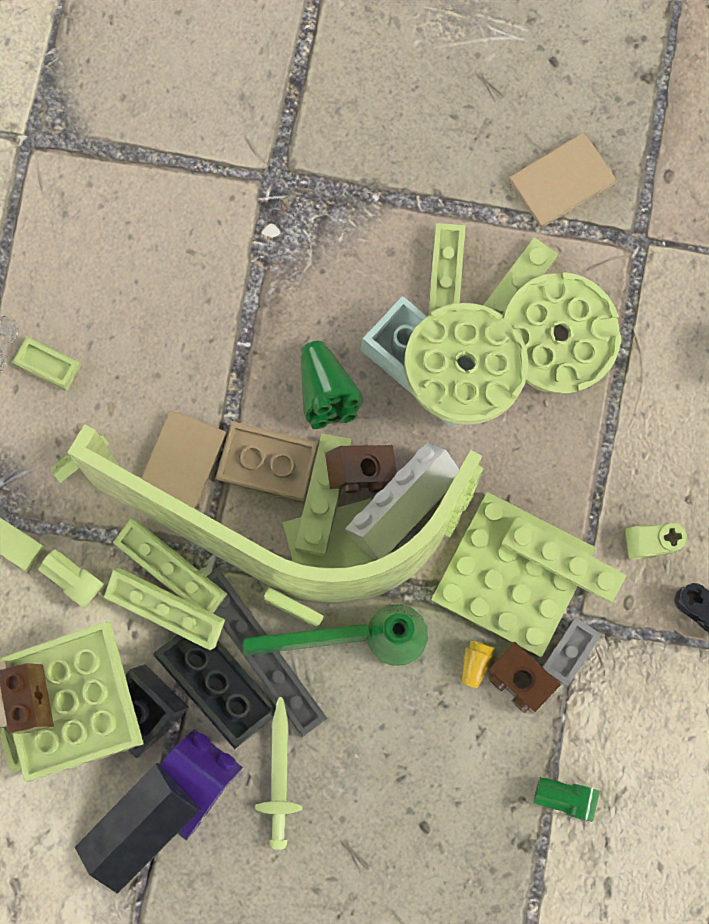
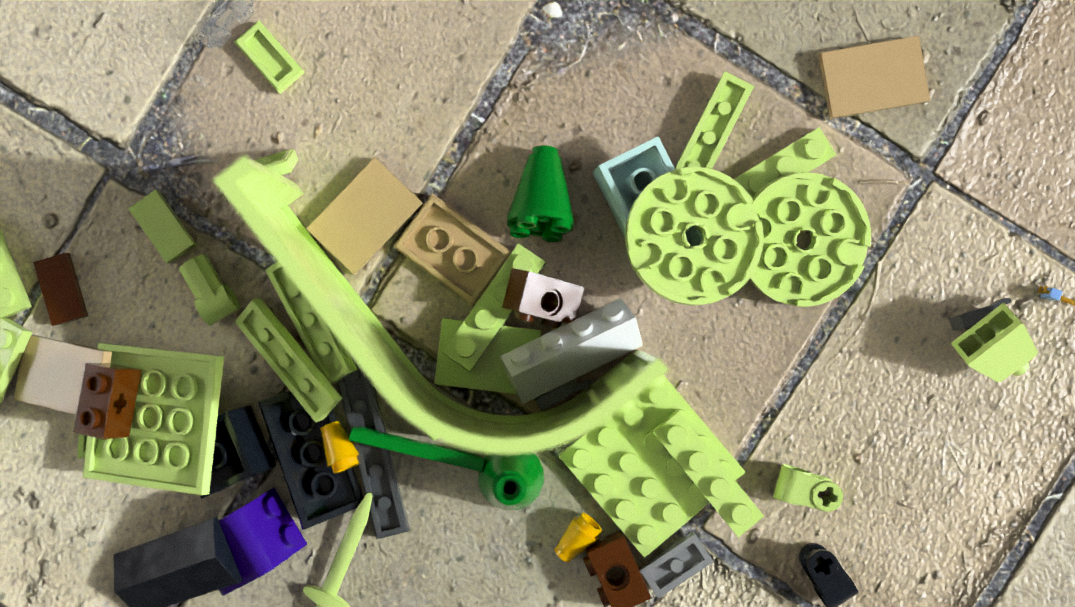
camera: 20 degrees right, 10 degrees up
(238, 668) = (338, 449): none -> yellow cone

